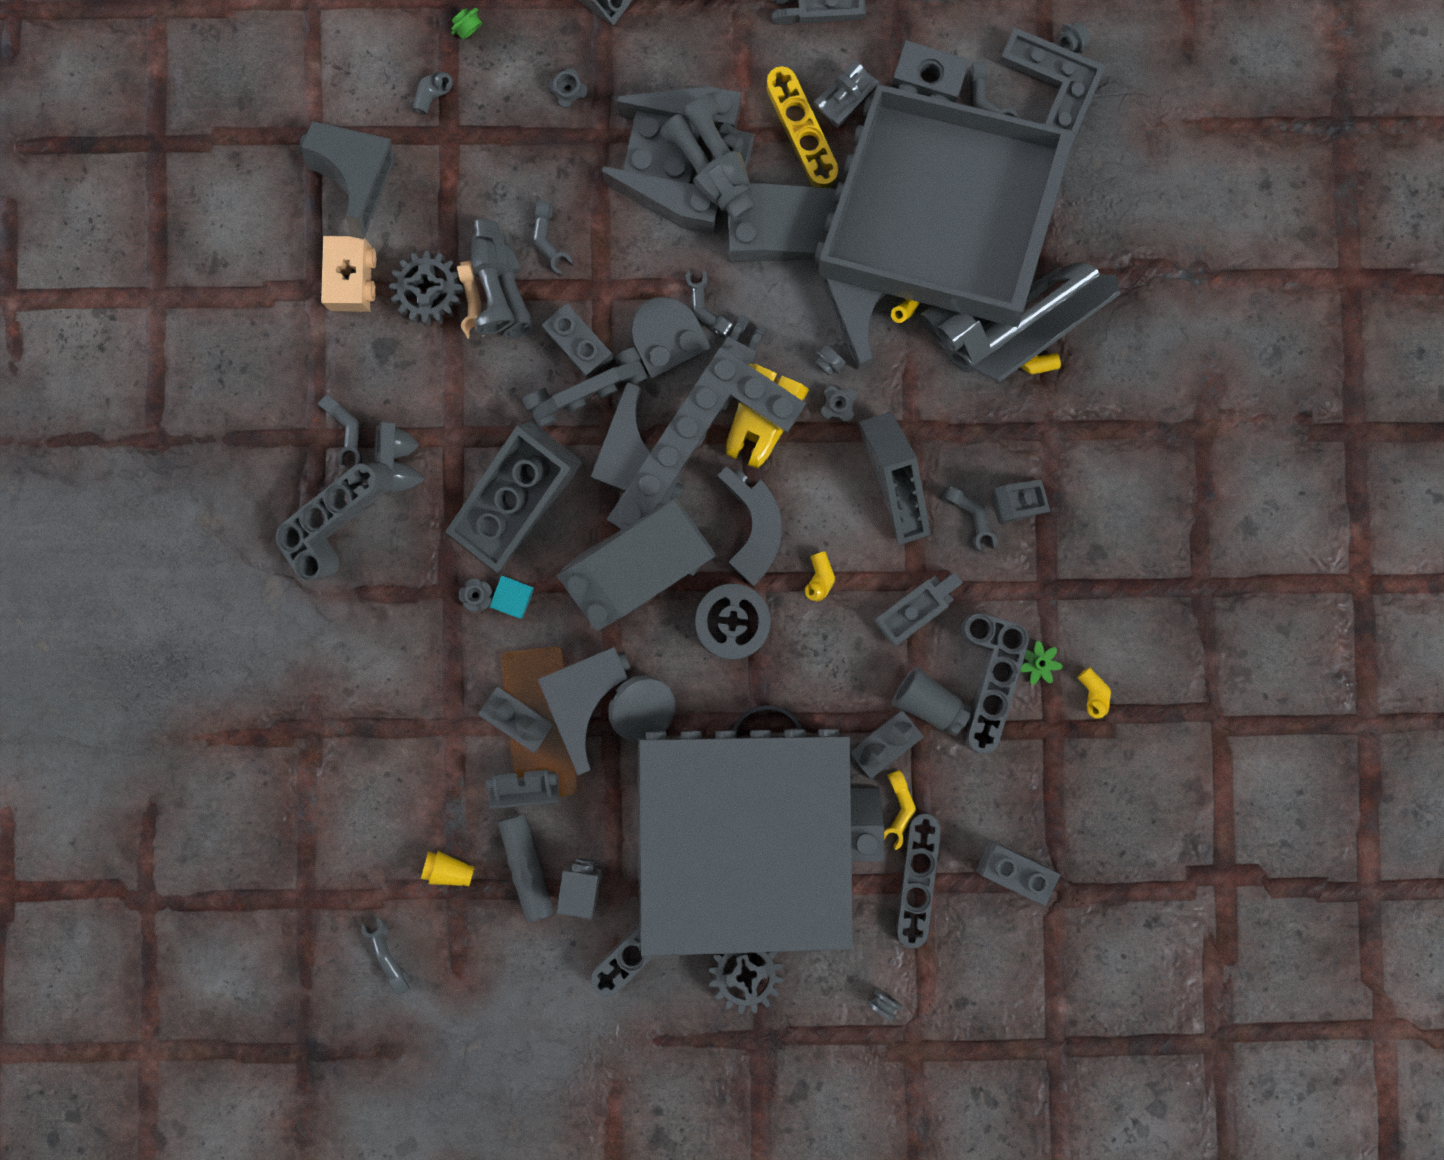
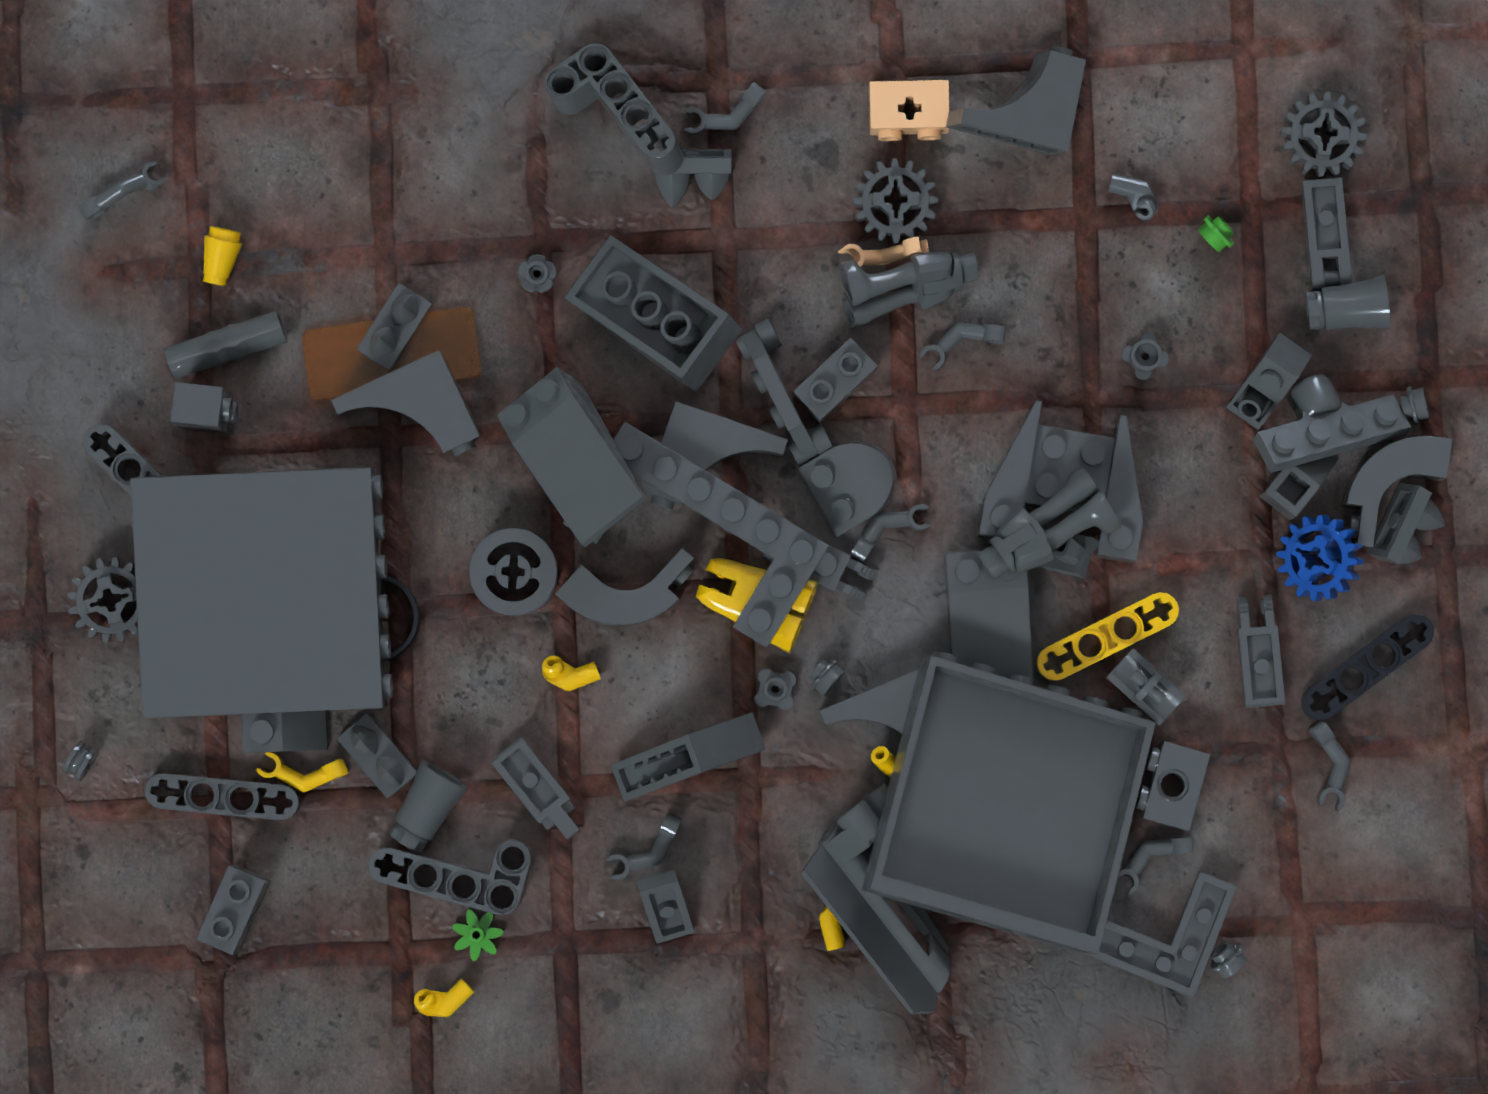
camera: 90 degrees right, 0 degrees up
(511, 597) = (536, 315): teal tile -> none
(532, 789) = (313, 345): dark grey hinge -> none
(641, 707) = (411, 470): dark grey tile -> none

